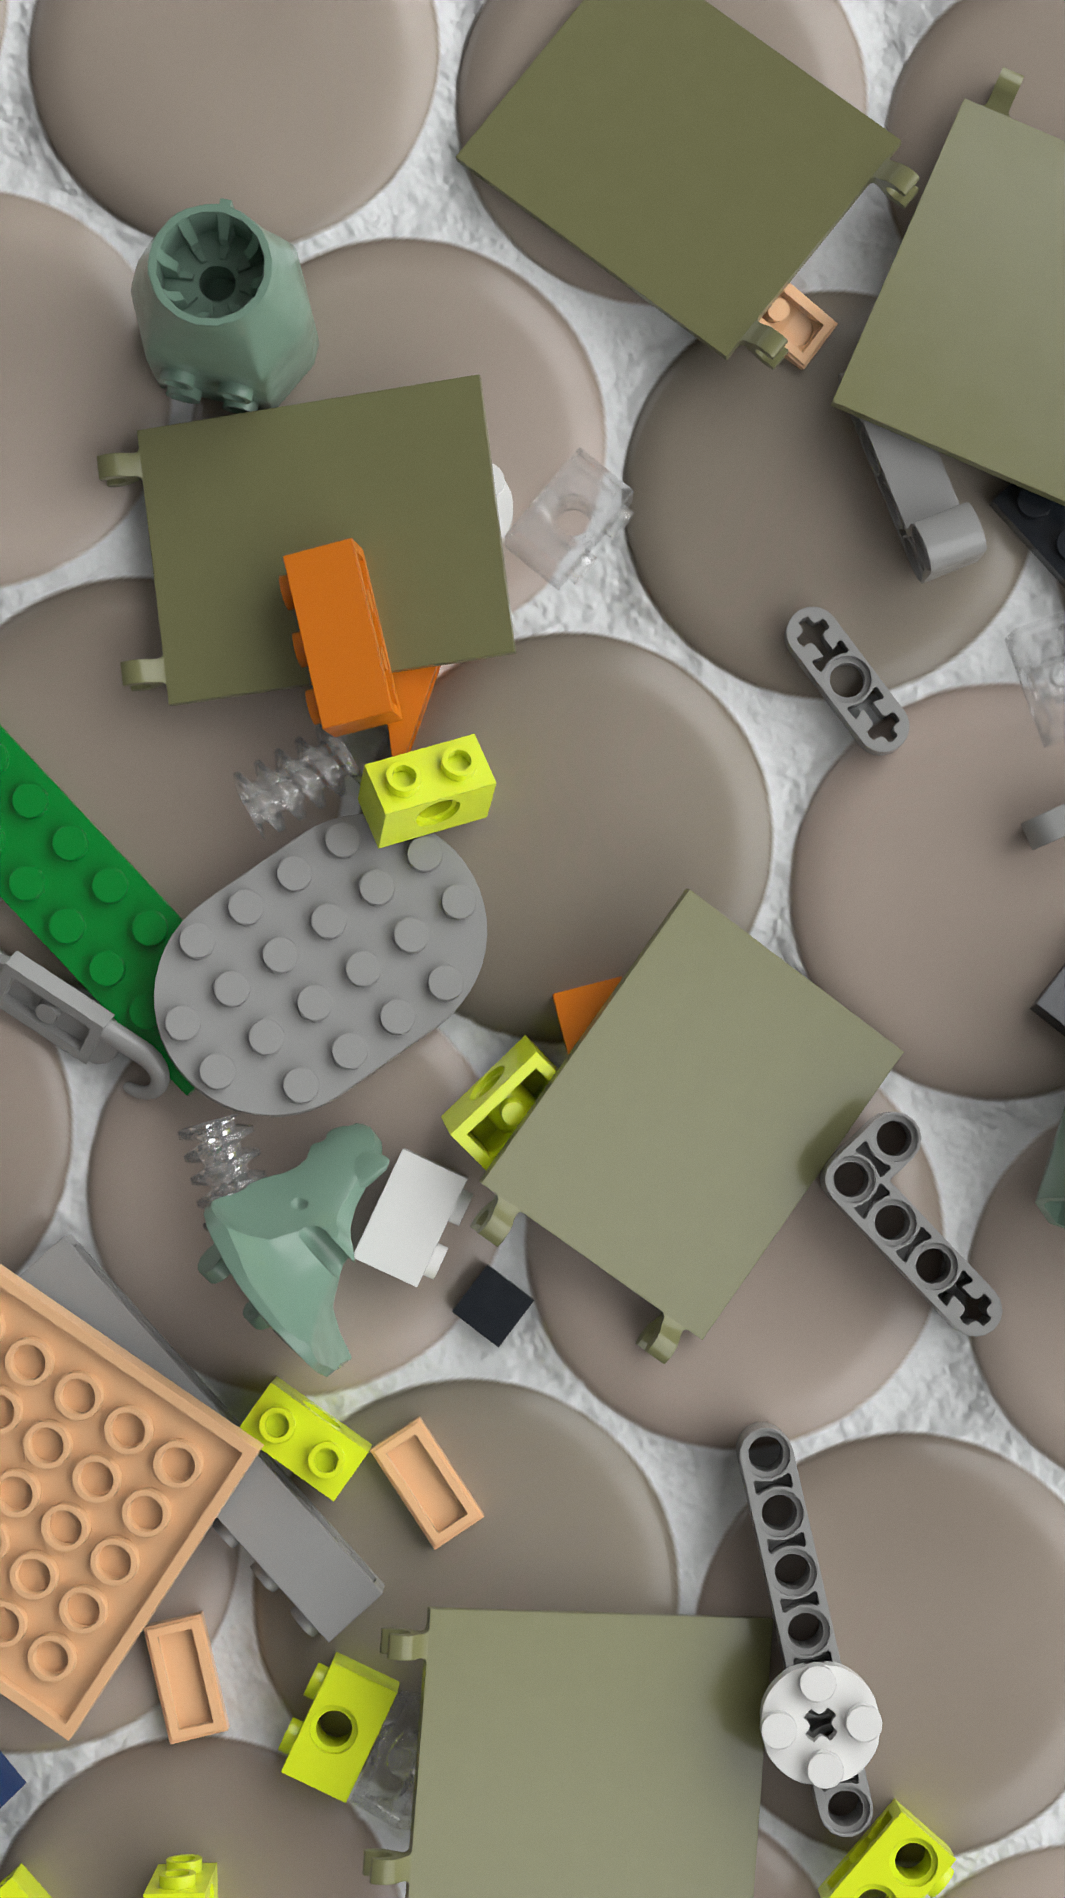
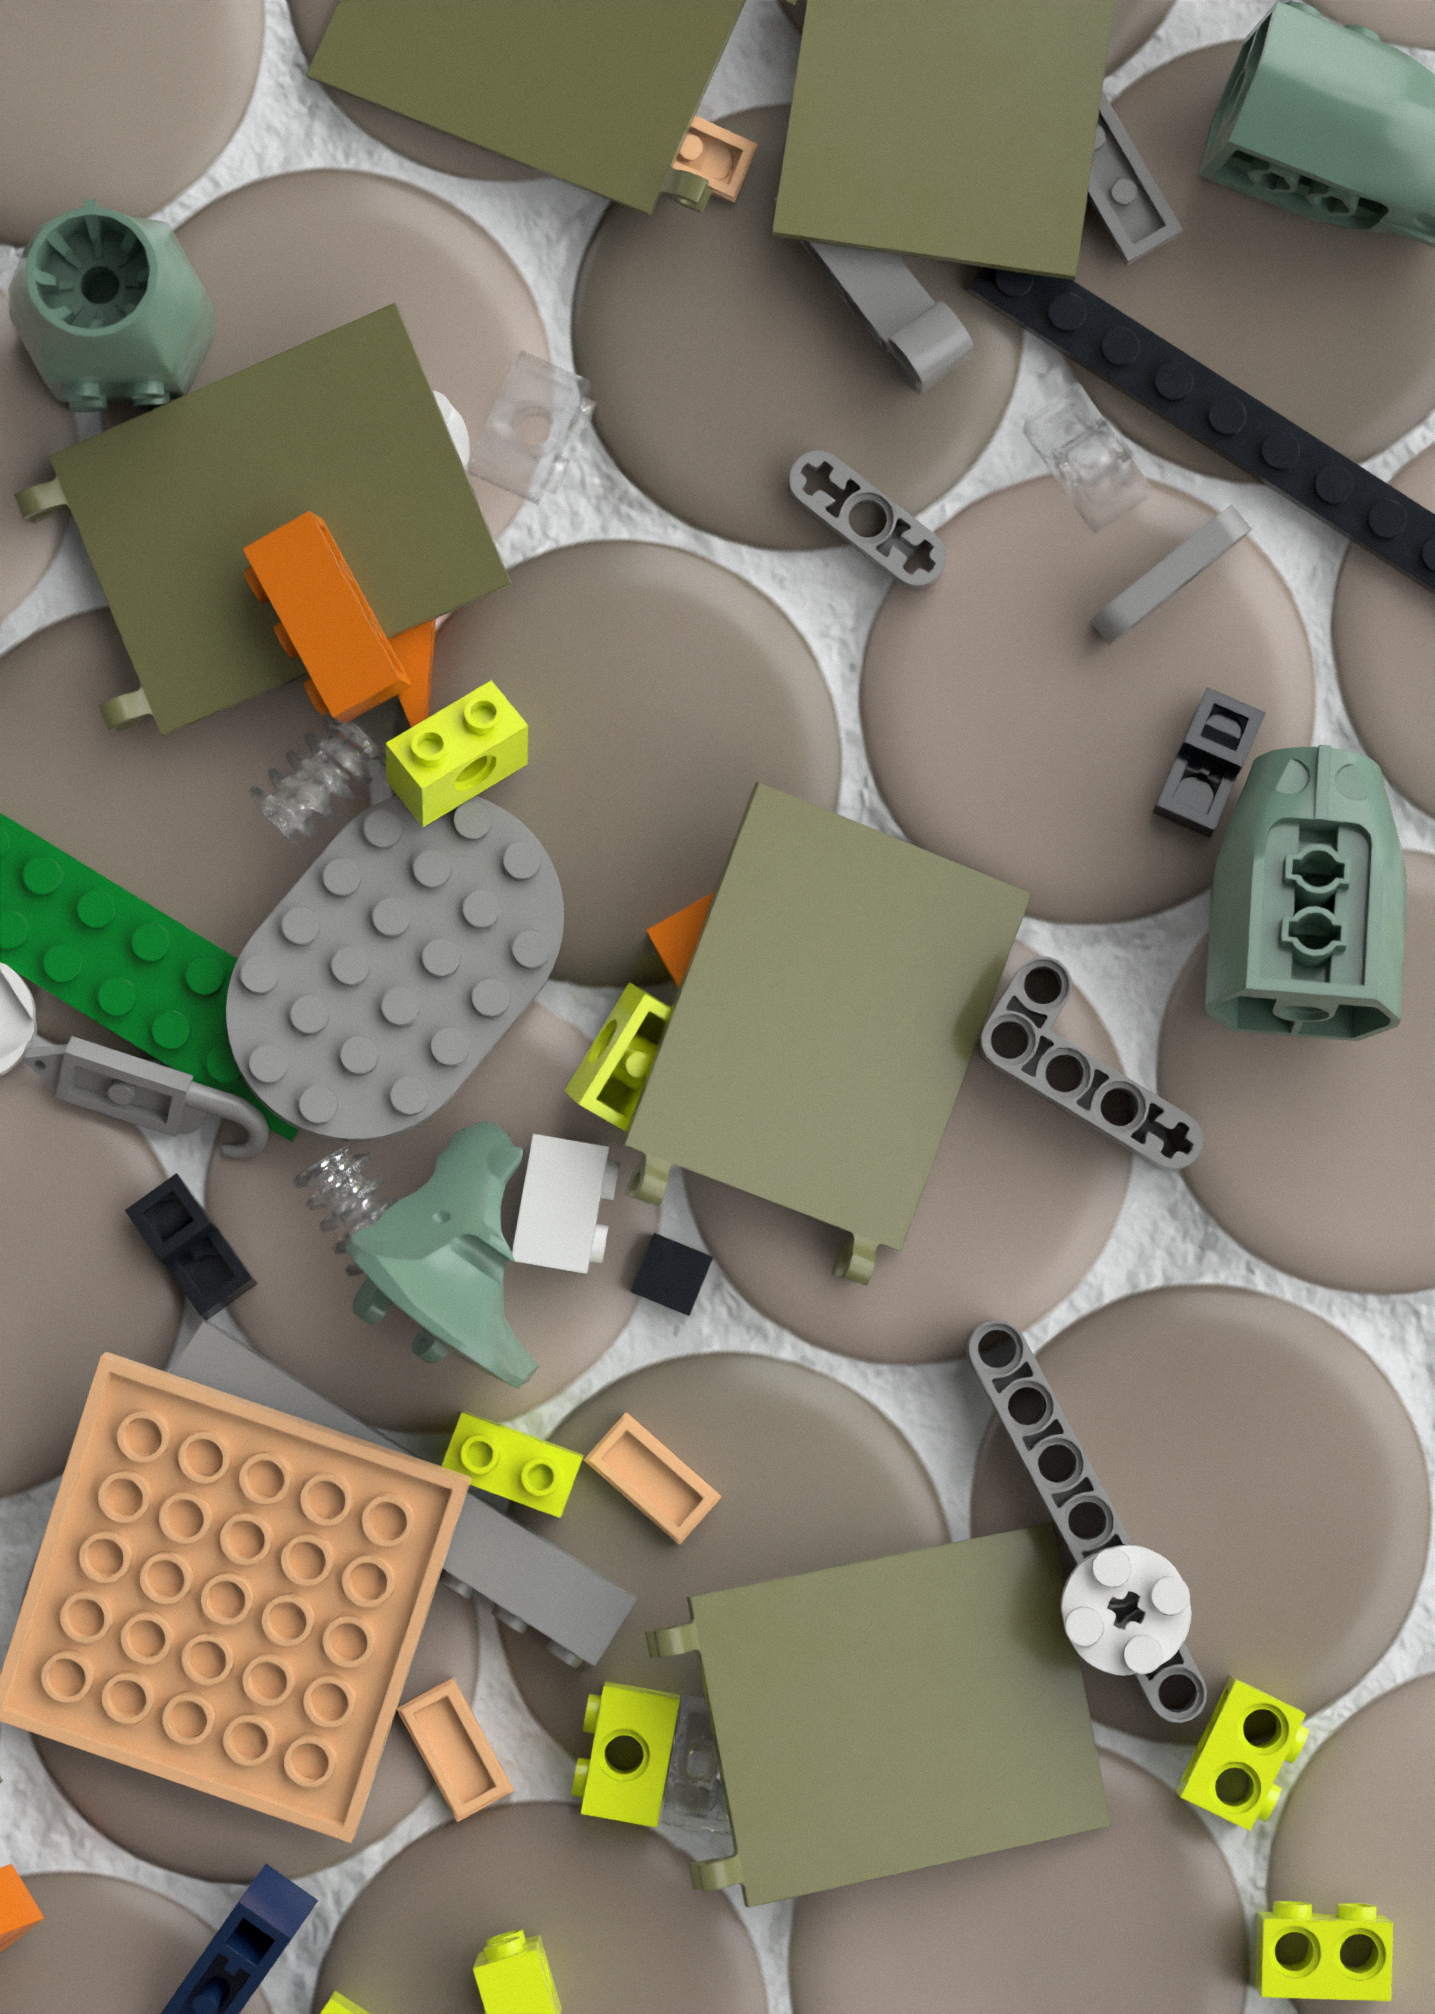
camera: 15 degrees left, 0 degrees up
(73, 1165) = (191, 1247): none -> black slope

